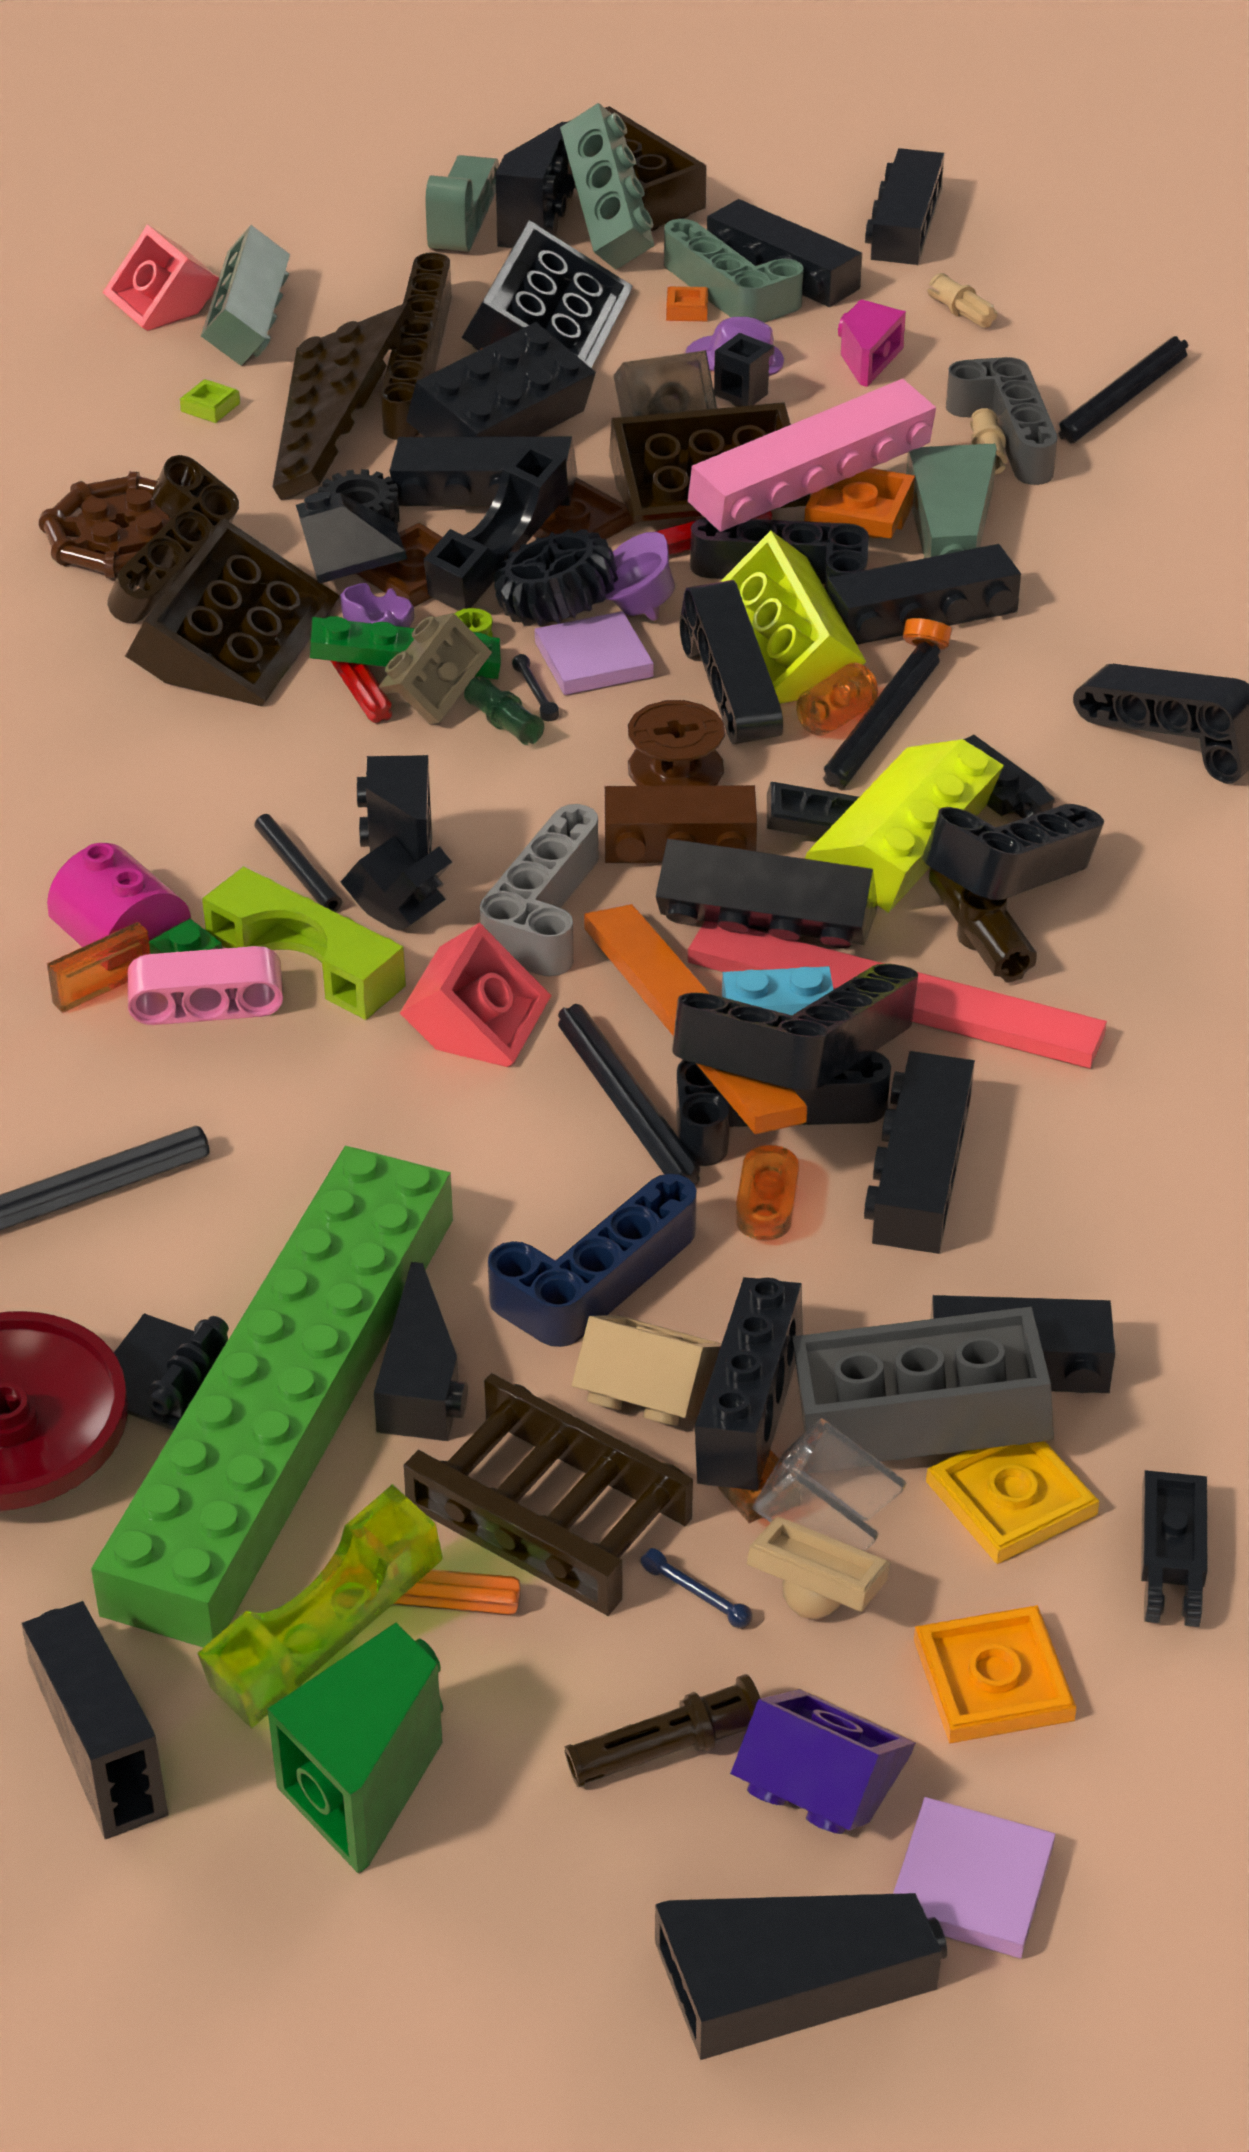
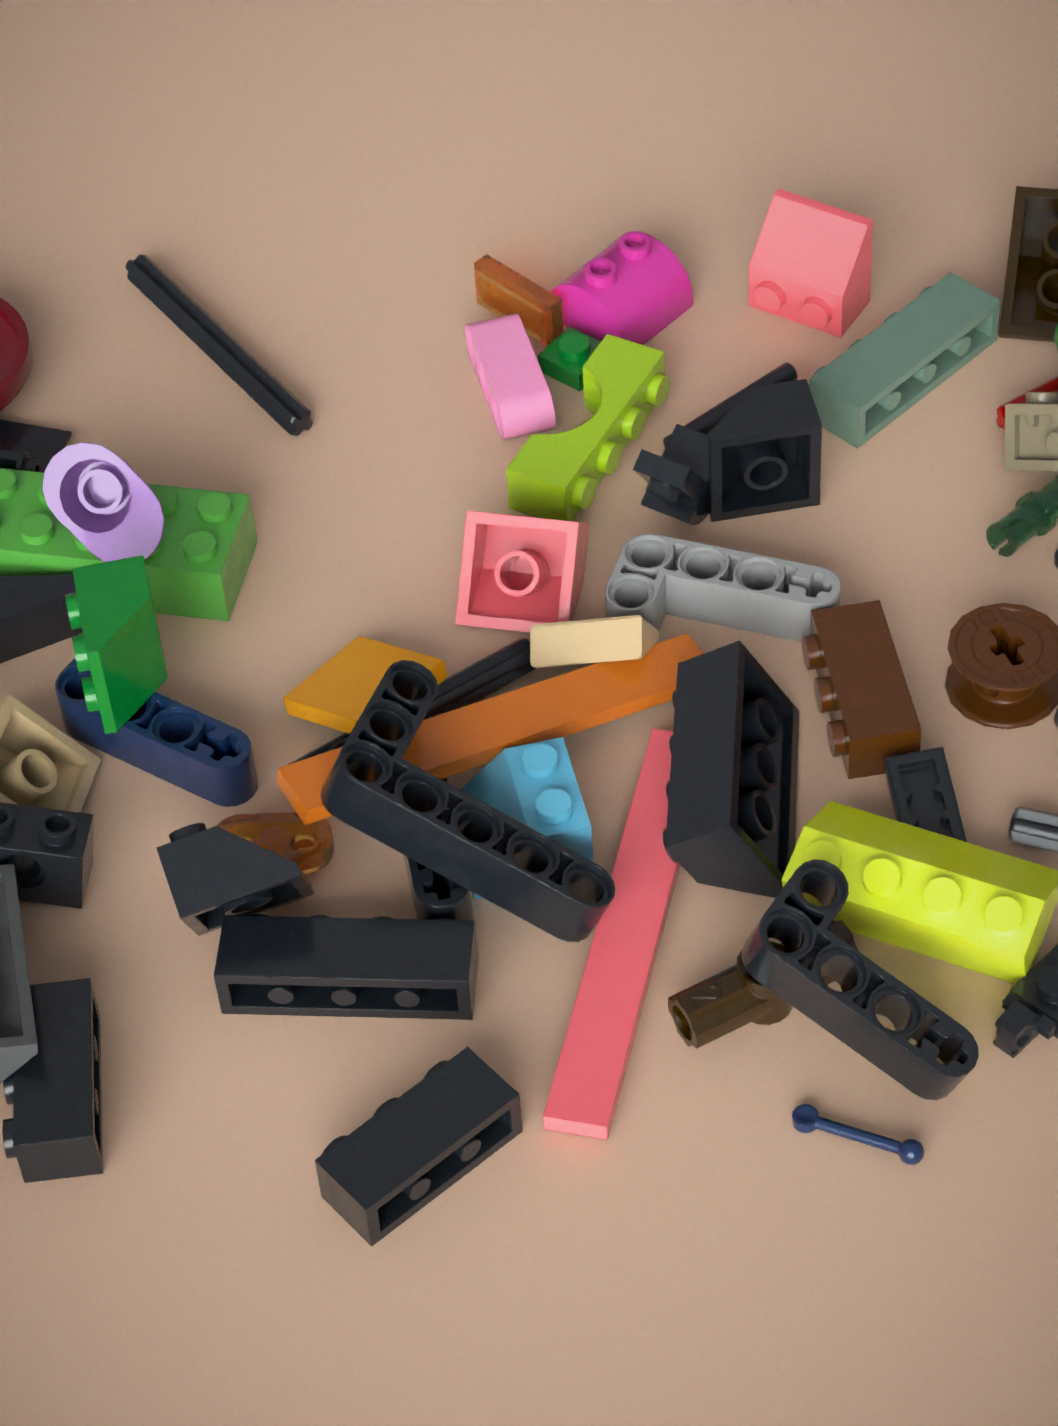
camera: 85 degrees right, 5 degrees up
(158, 768) = (812, 263): none -> coral slope
(288, 746) = (904, 359): none -> sand green brick
(368, 1212) = (103, 502): none -> piece
(568, 1213) = (117, 640): none -> green slope
(593, 960) = (591, 641): none -> tan slope
(597, 1111) = (347, 681): none -> light orange tile
(848, 1193) = (226, 875): none -> black slope
(1100, 926) = (806, 1119): none -> dark blue hinge
(1118, 1123) = (418, 1145): none -> black brick

